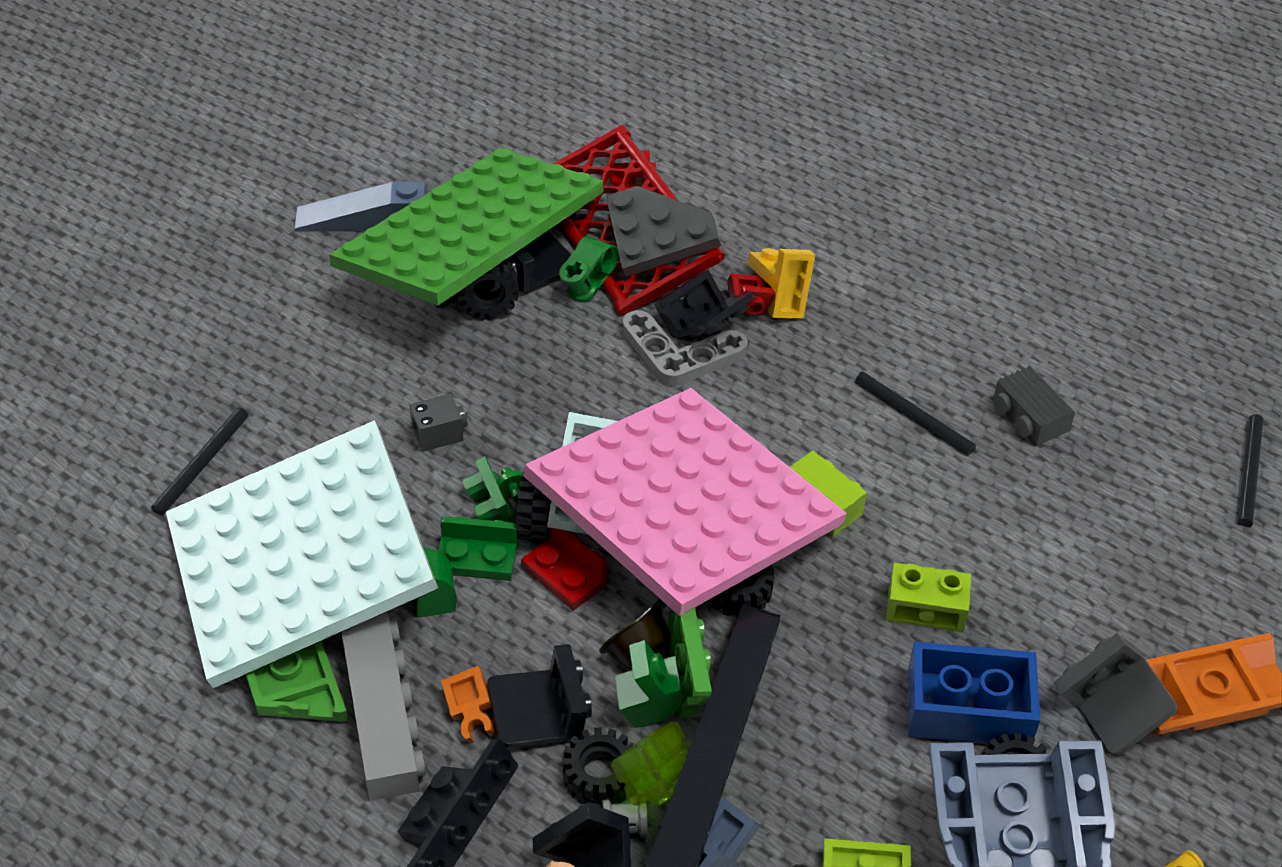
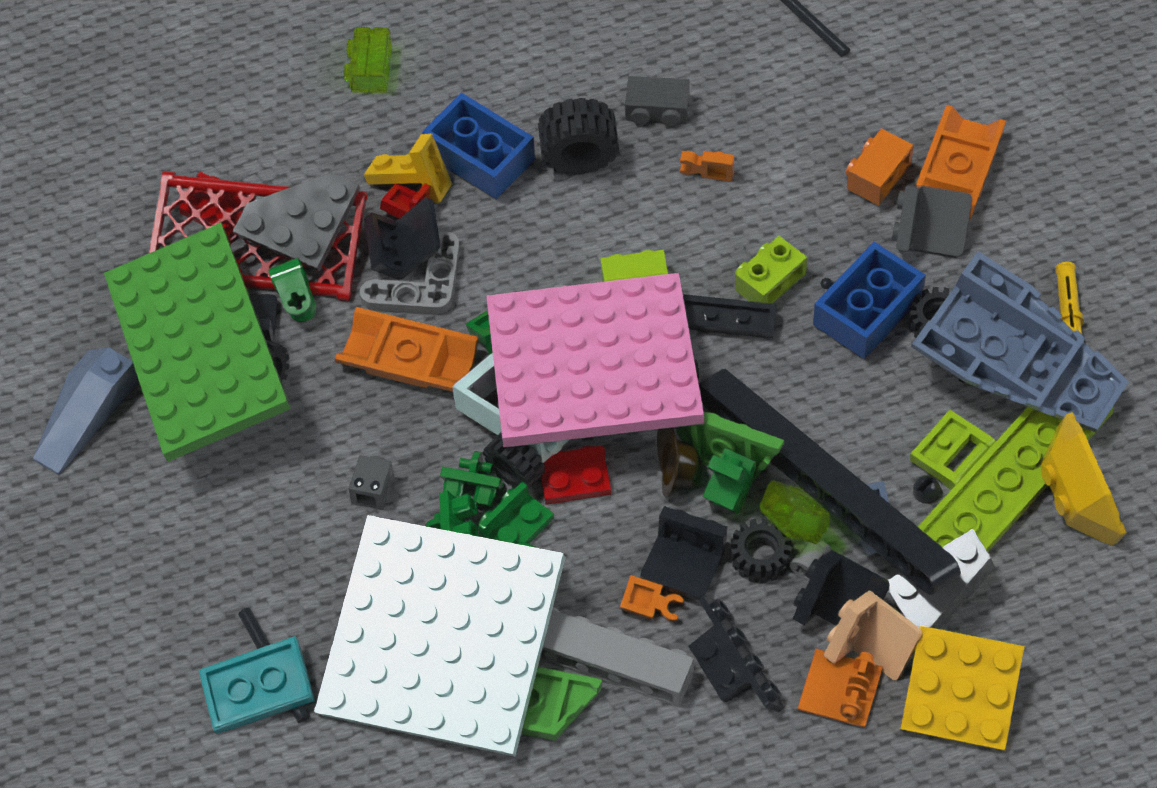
camera: 50 degrees left, 10 degrees up
(166, 456) = (256, 685): none -> teal tile
(438, 499) = (453, 513): none -> green hips
(594, 372) = (408, 350): none -> orange piece
(847, 588) = (730, 316): none -> black plate
(851, 307) = (481, 145): none -> blue brick
(869, 197) = (369, 61): none -> clear neon green brick
(915, 413) = (601, 174): black bar -> none
(924, 361) = (578, 136): none -> black tyre
(1004, 484) = (710, 165): none -> orange plate
(1142, 615) = (879, 166): none -> orange brick

